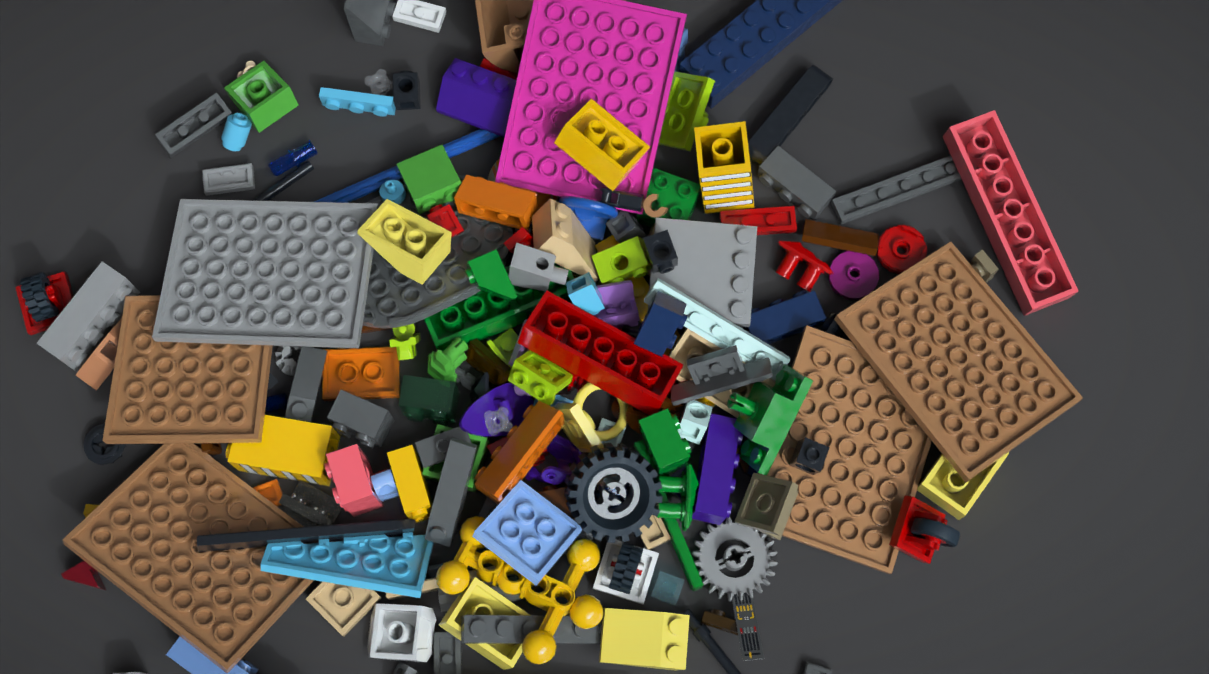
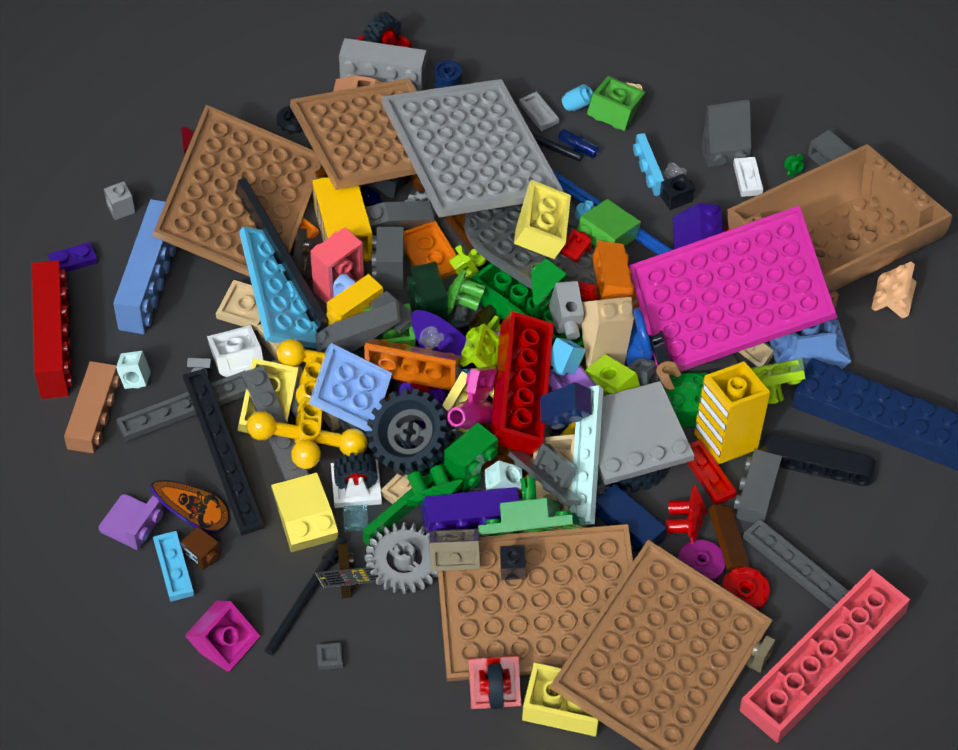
camera: 65 degrees right, 20 degrees down
(140, 254) = (447, 74): none -> dark blue wheel
(193, 125) = (566, 69): dark grey brick -> none
(601, 144) = (696, 311): yellow slope -> none
(610, 414) = (477, 408): none -> dark pink plate
(657, 242) = (629, 388): black brick -> none

